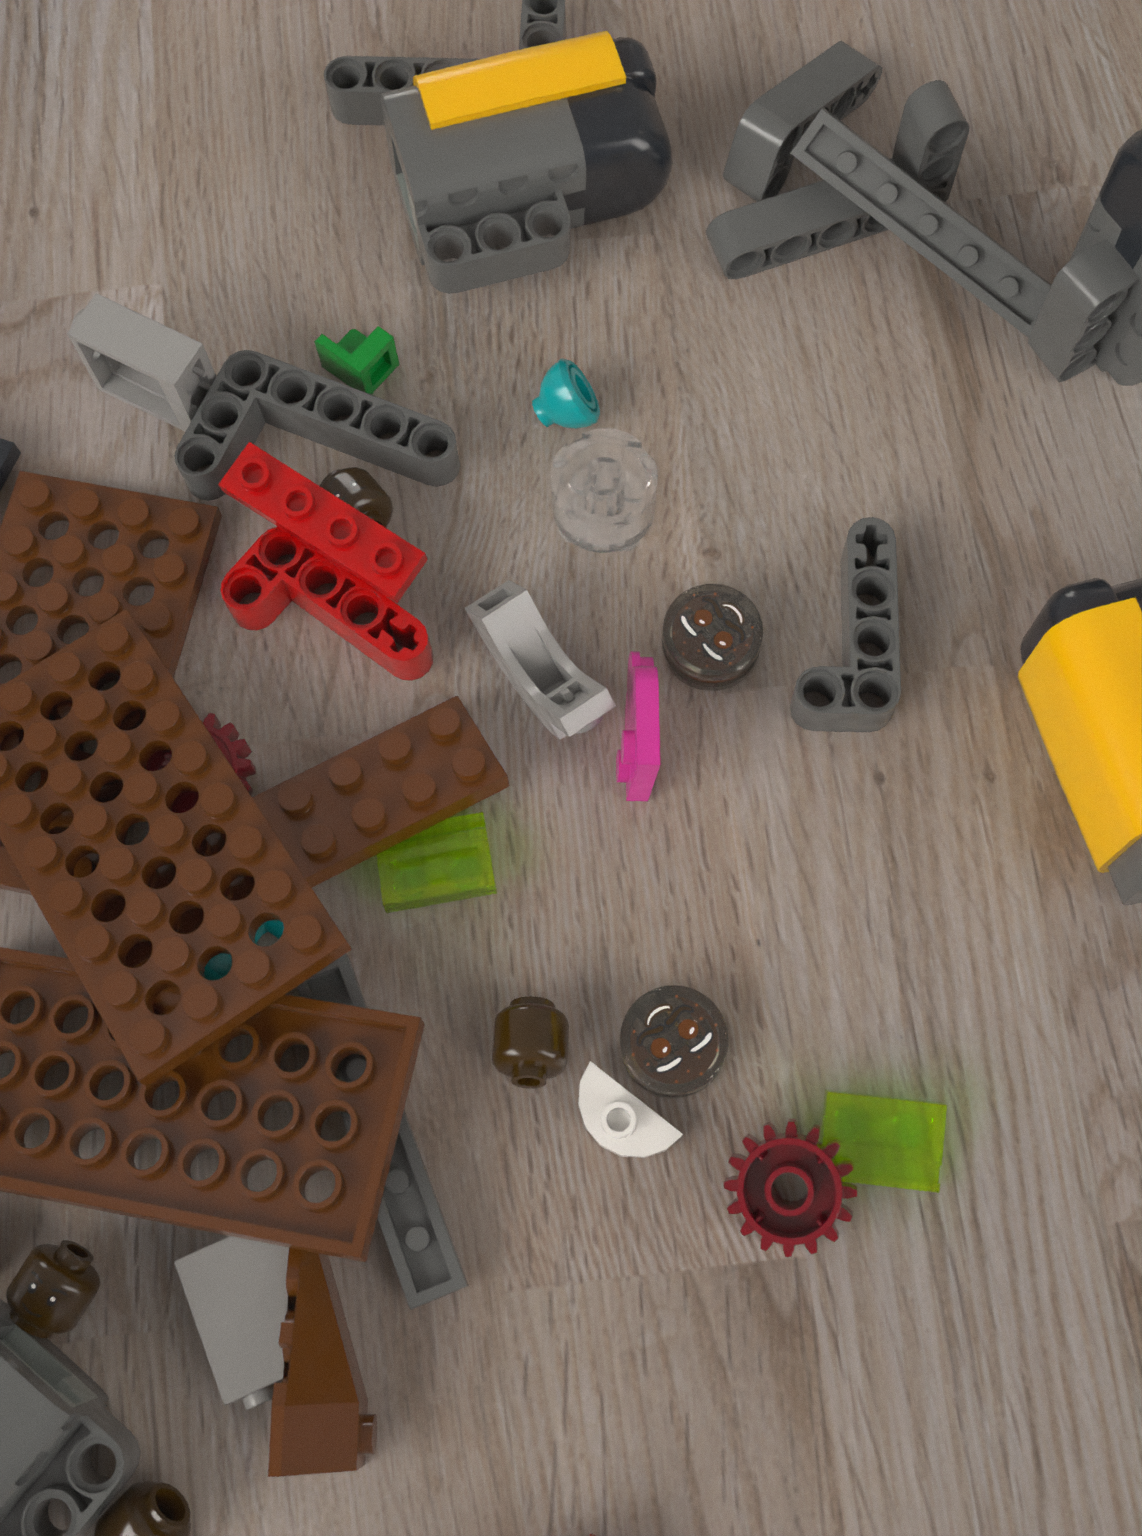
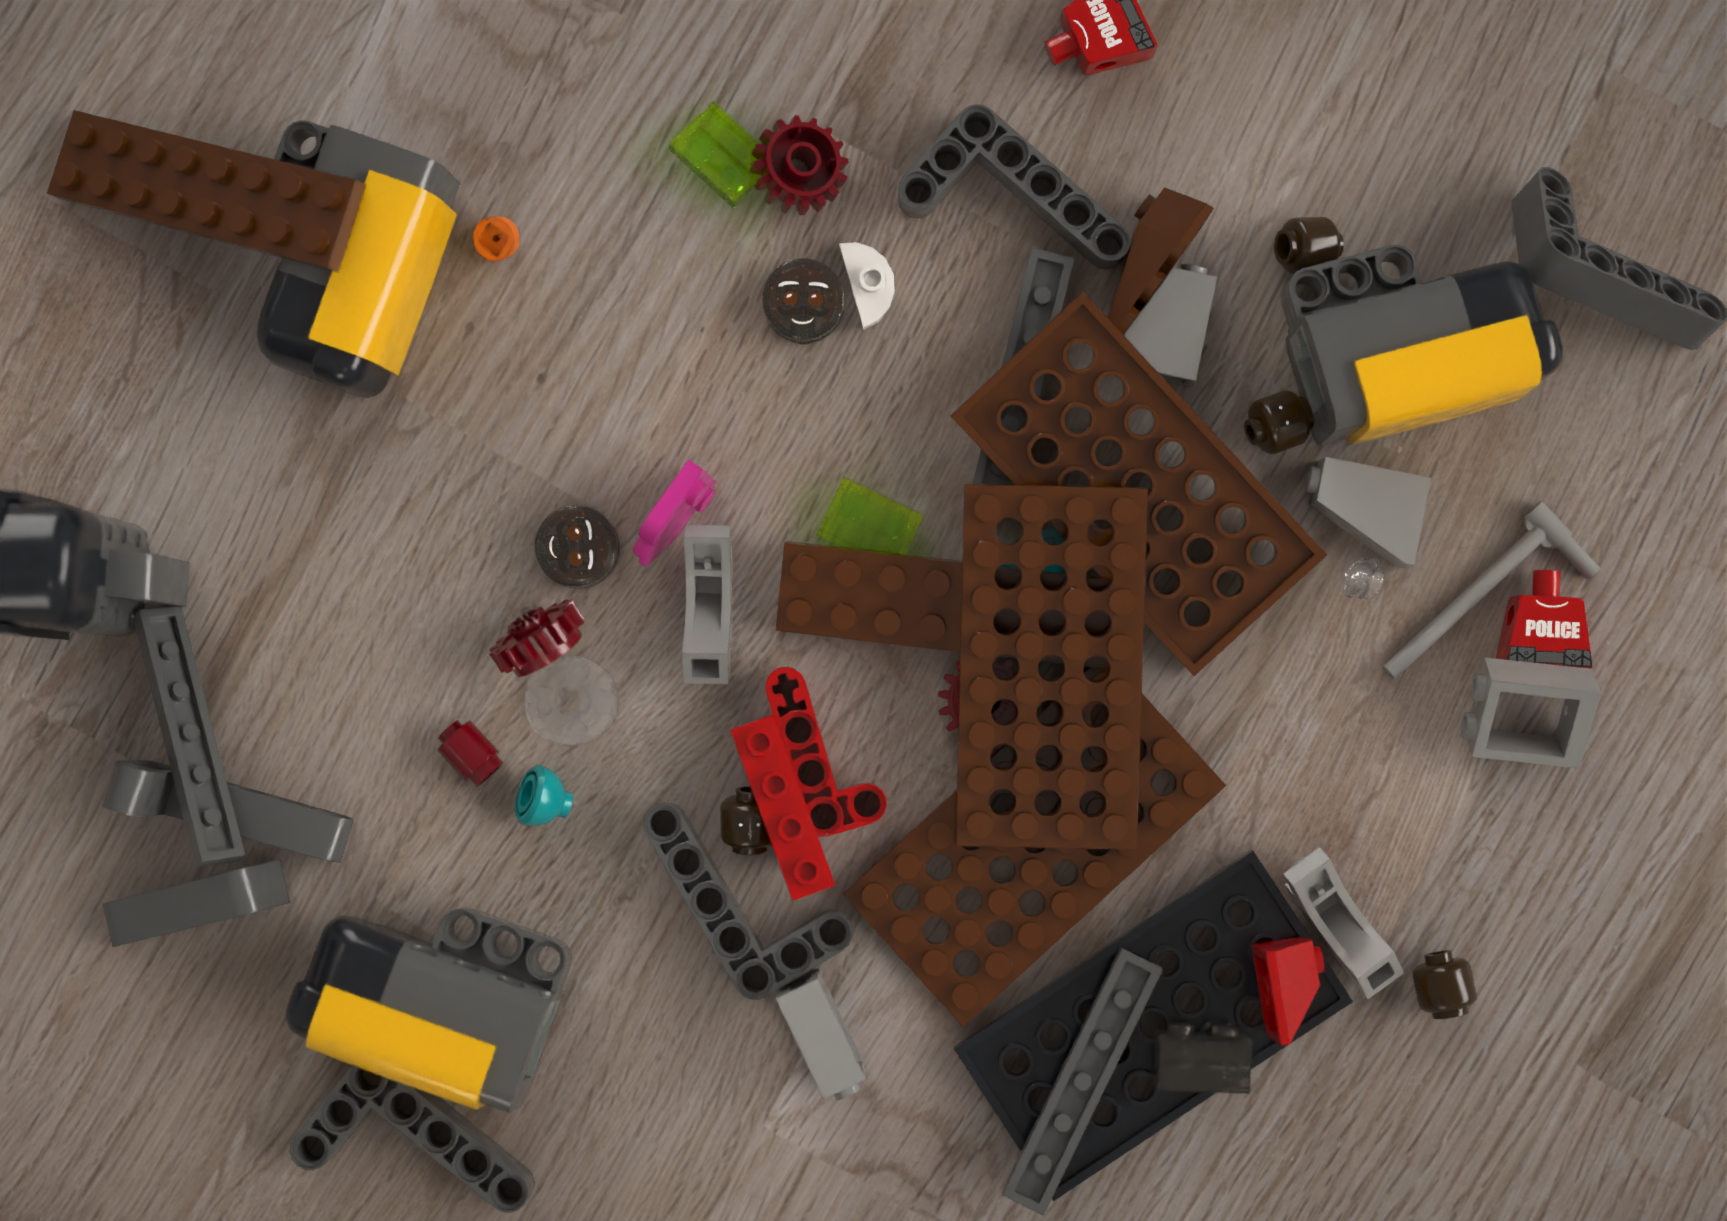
camera: 145 degrees left, 15 degrees up
(359, 359) = (663, 945): green panel -> none
(530, 1041) = (891, 363): dark brown head -> none
(535, 1357) = (1016, 179): none -> dark grey beam
(665, 391) = (469, 752): none -> dark red brick
(678, 516) = (538, 638): none -> dark red gear
(859, 625) = (478, 483): dark grey beam -> none
(1039, 876) = (496, 238): none -> orange tile

